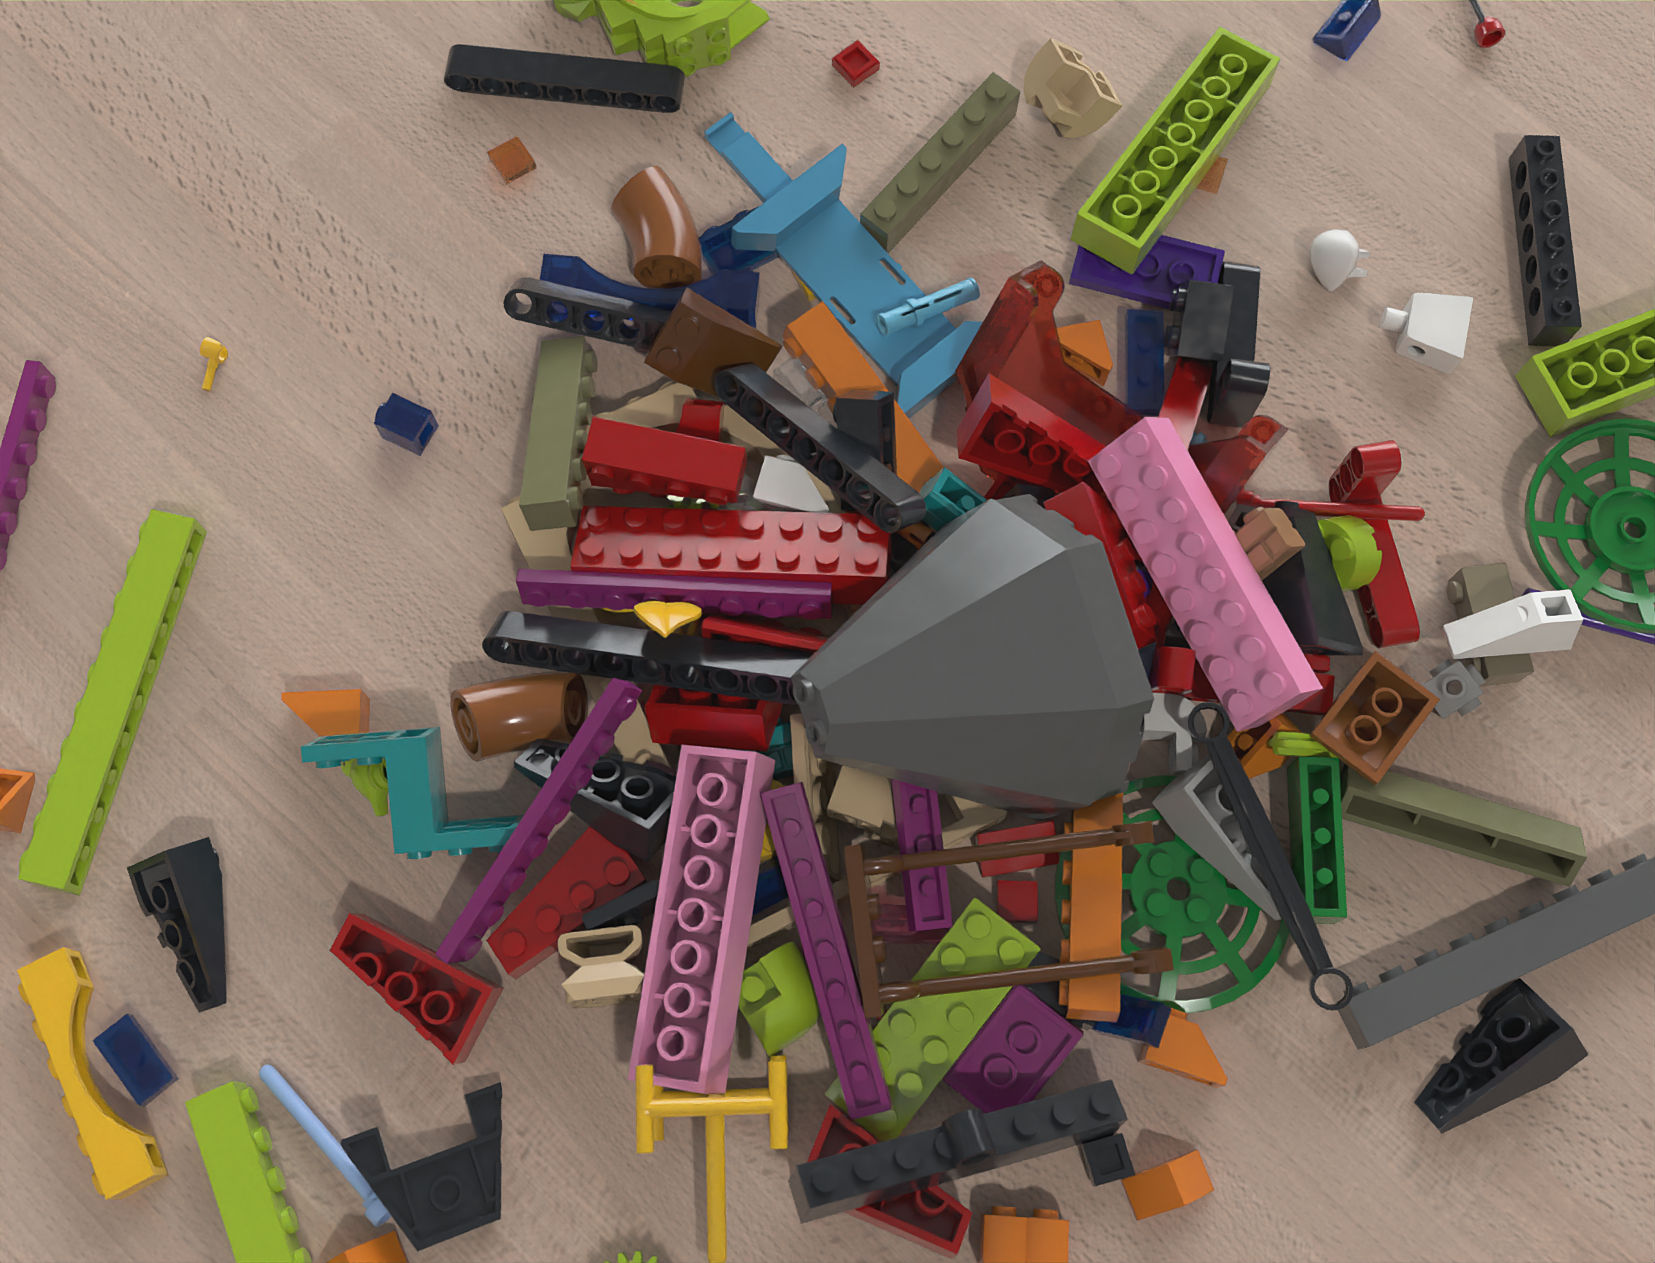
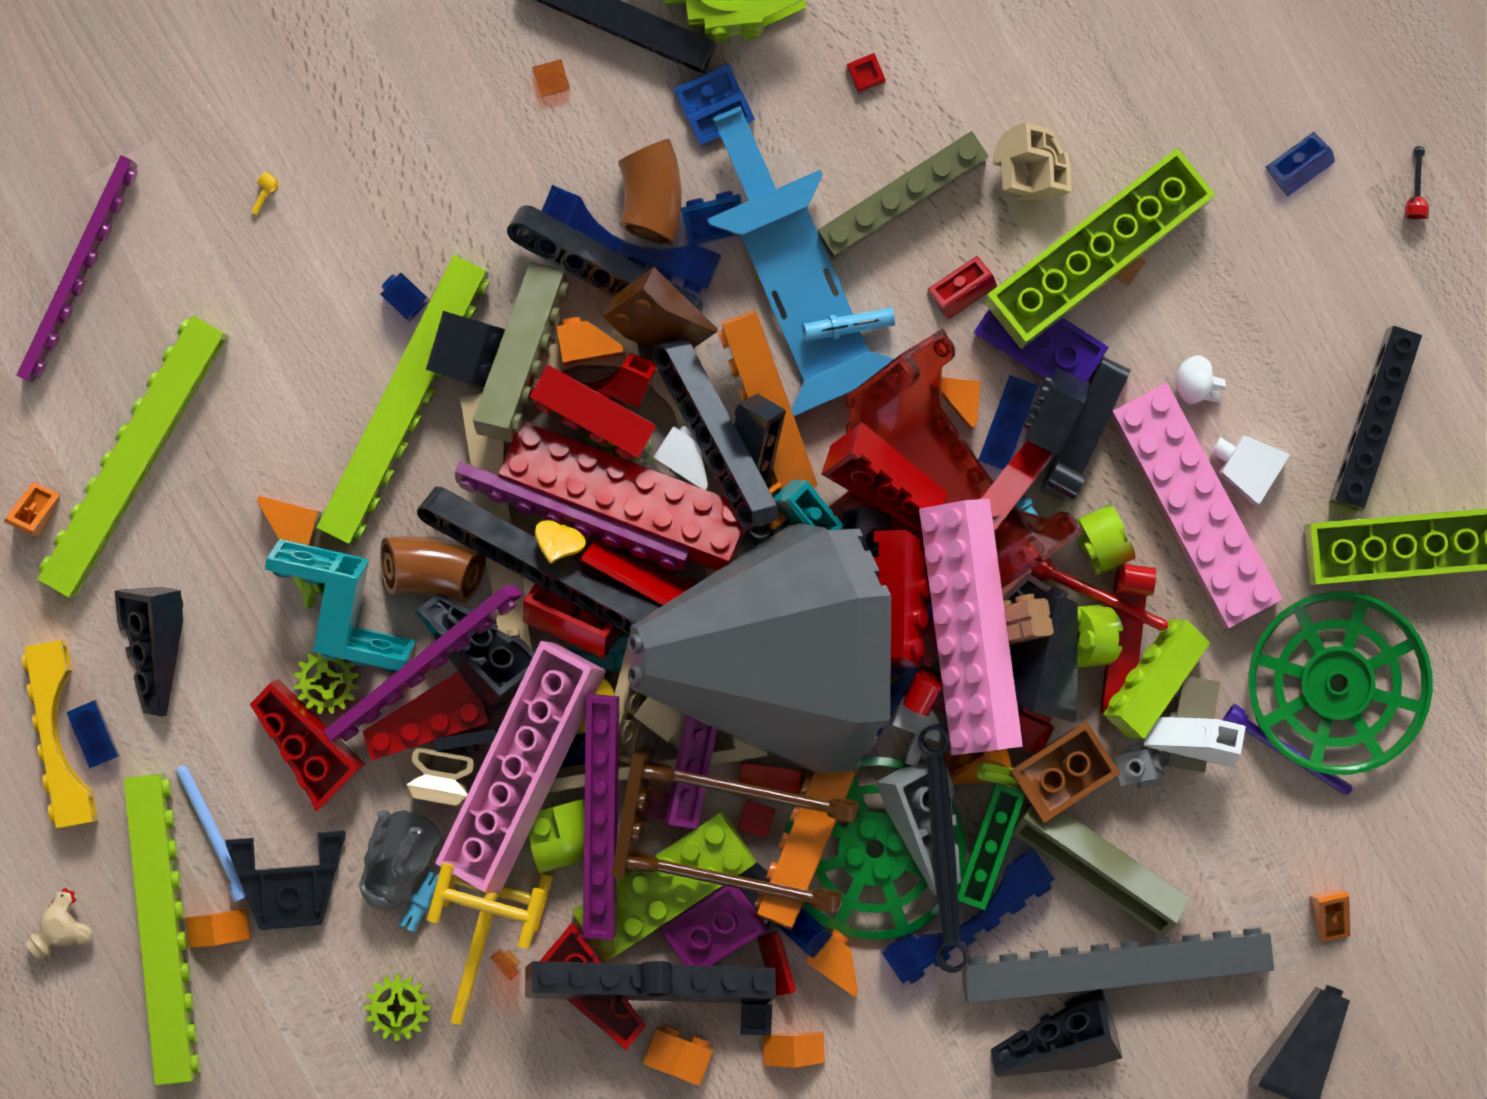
camera: 20 degrees right, 15 degrees up
(411, 902) = (329, 696): none -> lime gear
(433, 543) = (399, 407): none -> lime brick
(489, 450) = (464, 348): none -> black slope
(574, 1094) = (396, 857): none -> dark grey hair
(623, 1147) = (420, 902): none -> medium azure pin
(635, 397) = (585, 342): none -> orange slope
(683, 135) = (710, 97): none -> blue slope
(760, 1189) = (506, 962): none -> clear orange plate
(1040, 239) = (963, 287): none -> red slope
(1101, 1064) = (775, 957): none -> red slope
(1274, 1008) = (1020, 880): none -> clear blue arch
(1310, 447) = (1104, 540): none -> lime brick
(1392, 386) = (1195, 506): none -> bright pink brick
(1433, 581) = (1156, 678): none -> lime brick

